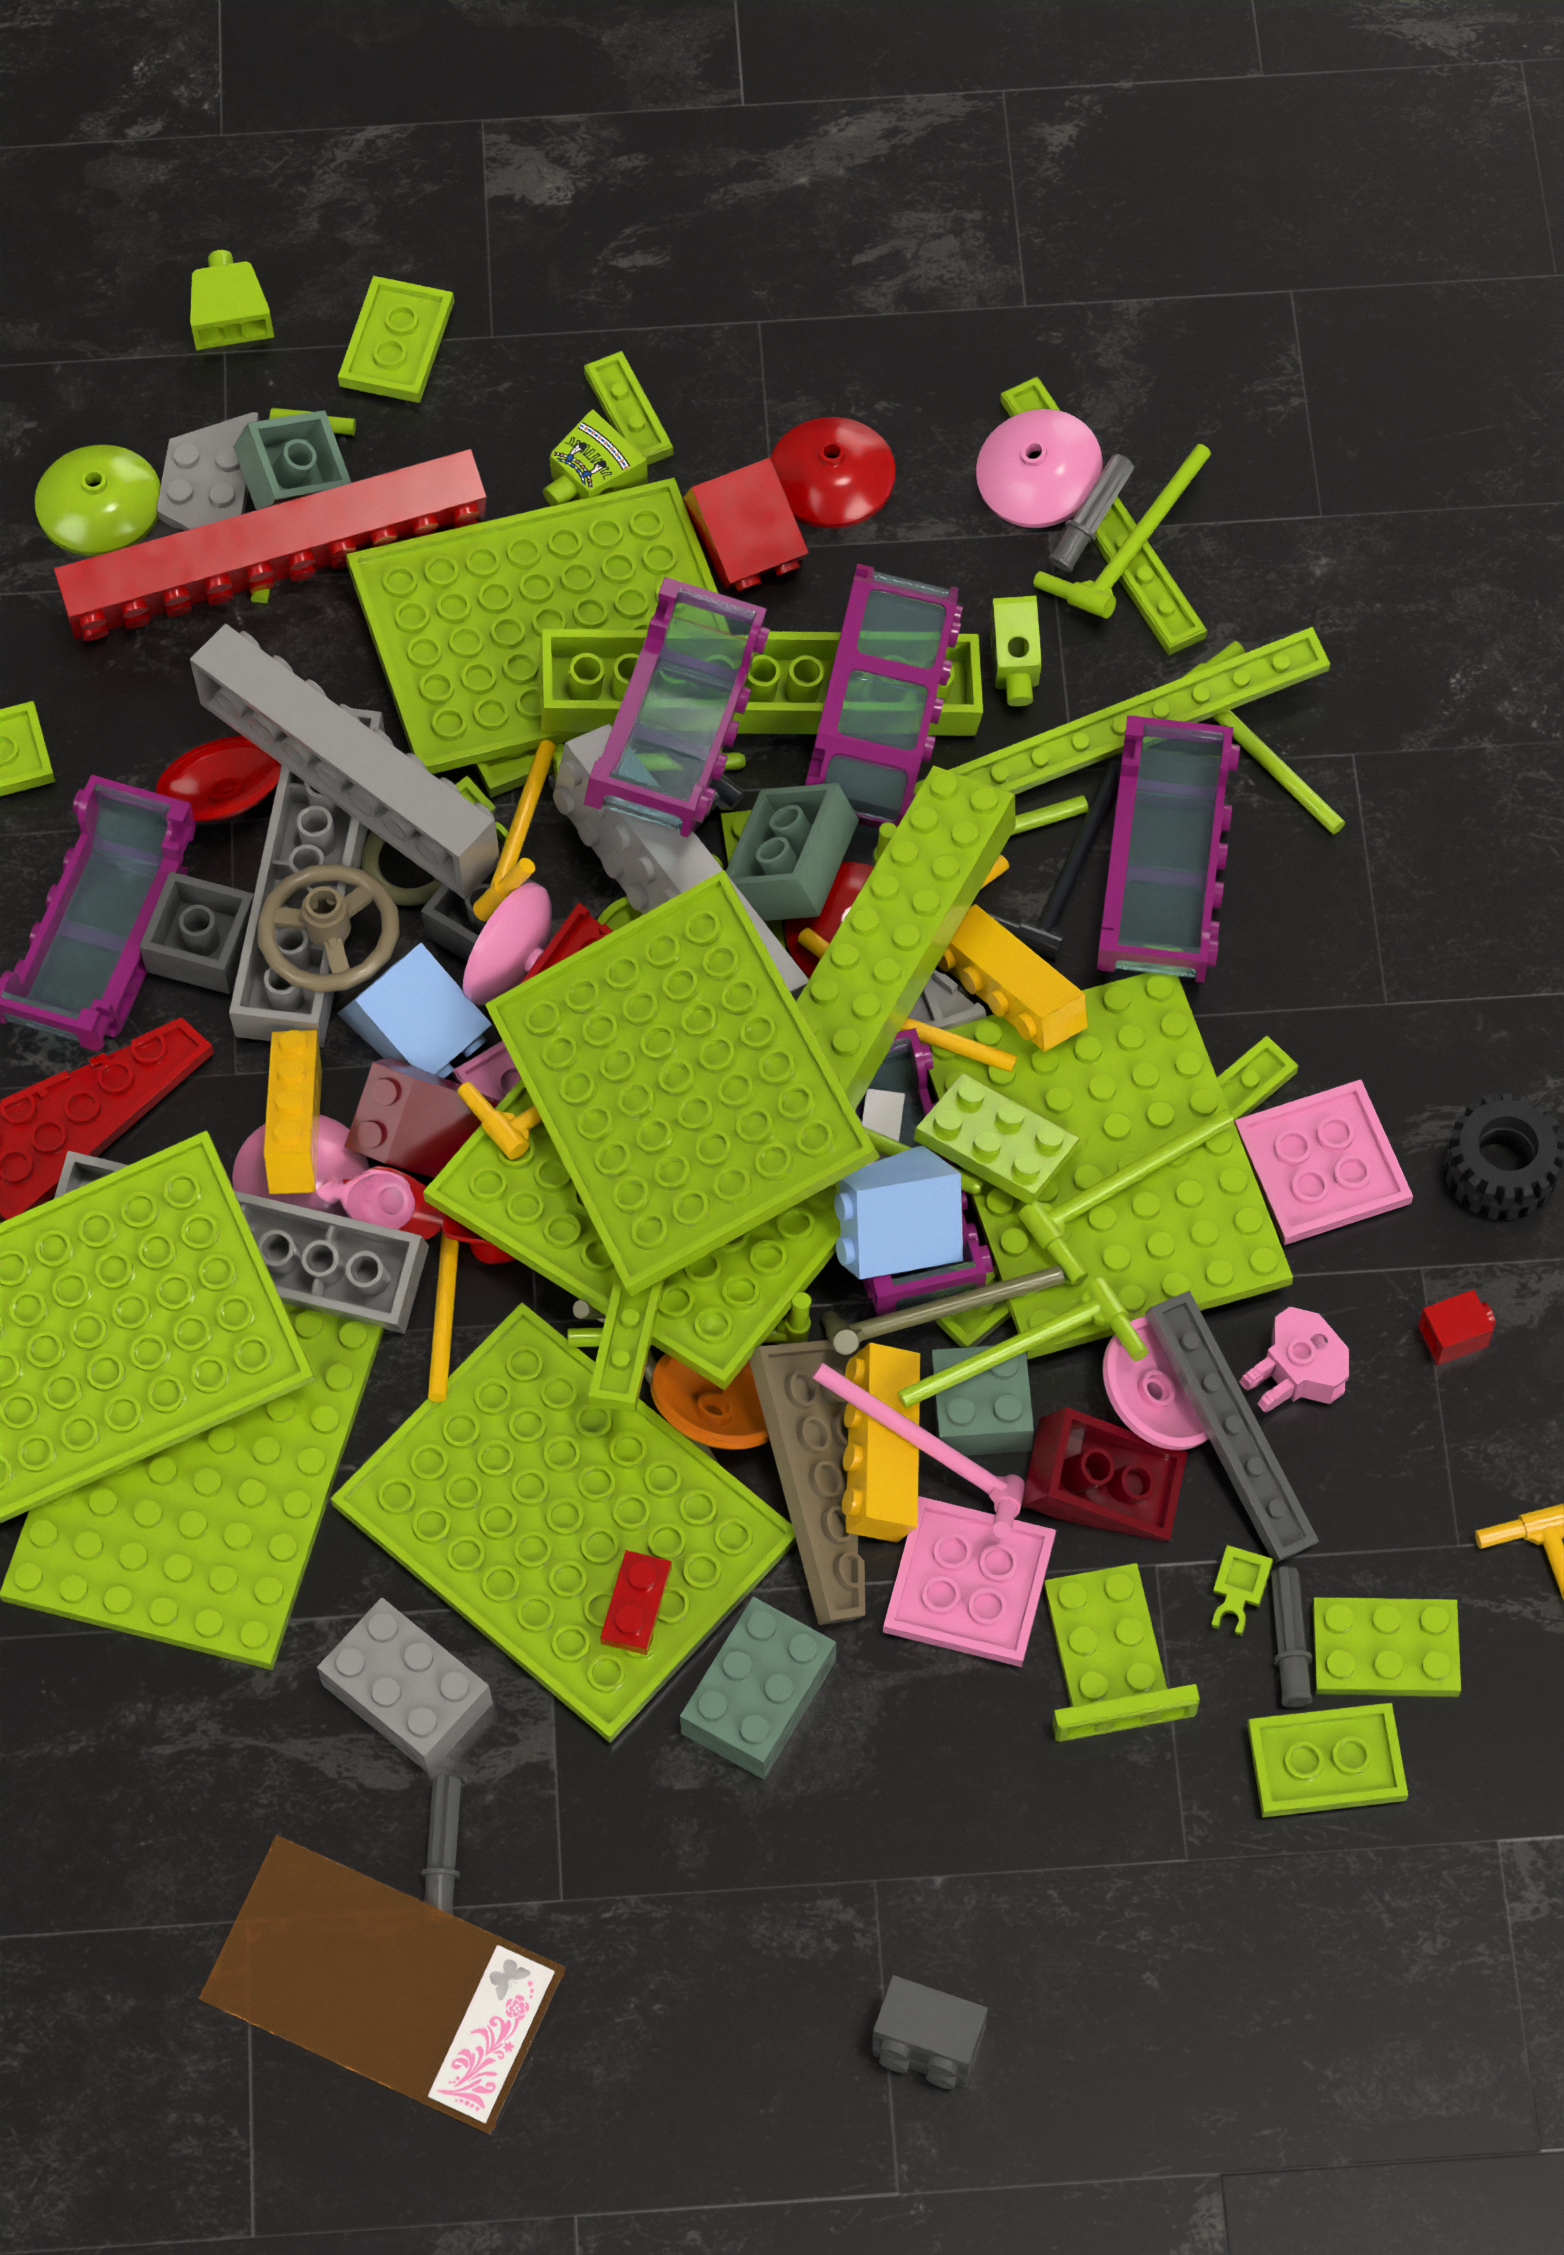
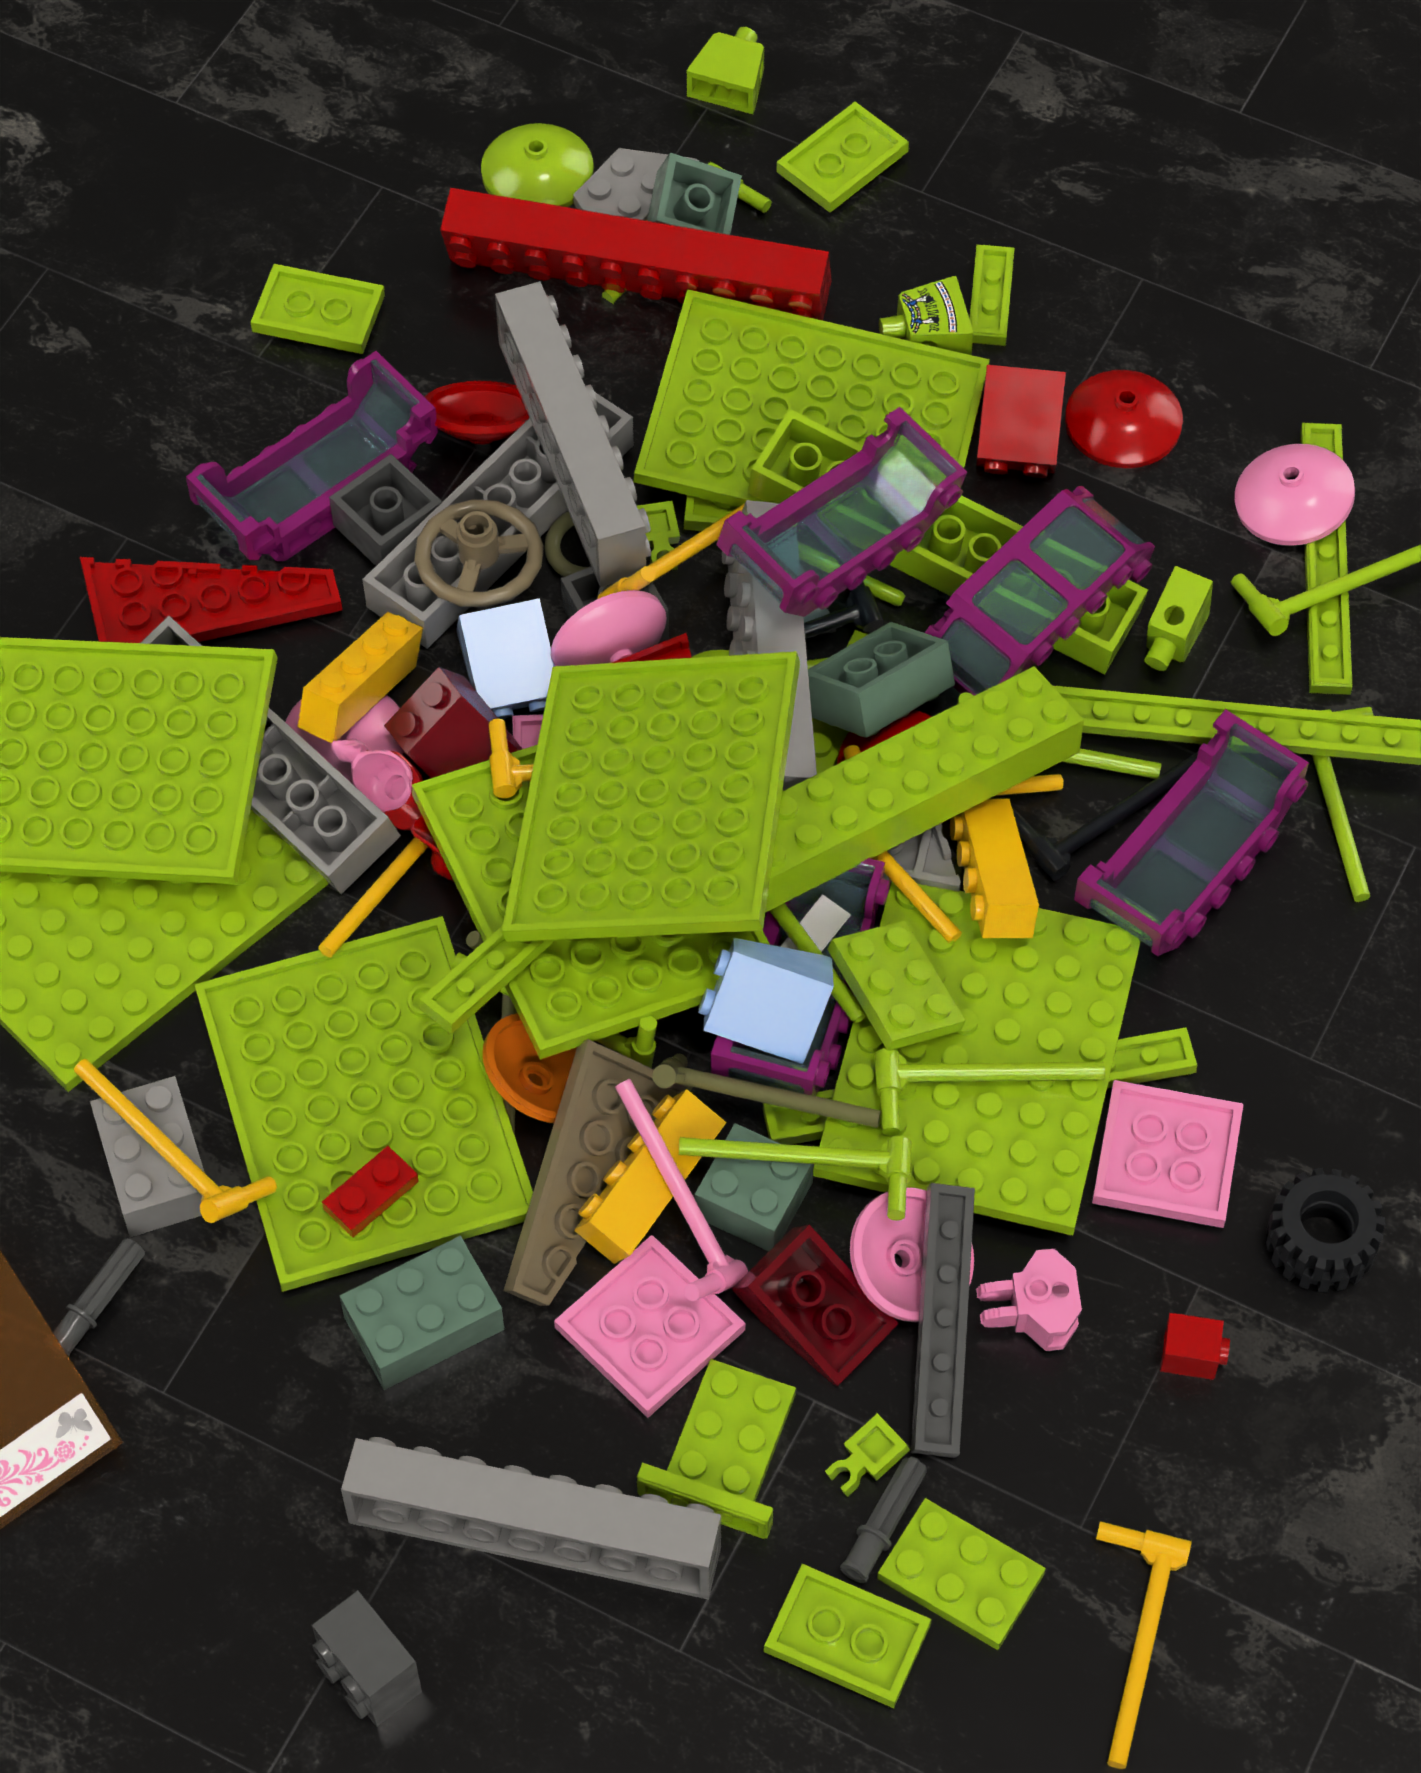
camera: 30 degrees right, 5 degrees down
(511, 1692) = (216, 1200): none -> yellow bar
(990, 1816) = (532, 1517): none -> light grey brick
(1091, 513) = (1313, 547): dark grey axle -> none

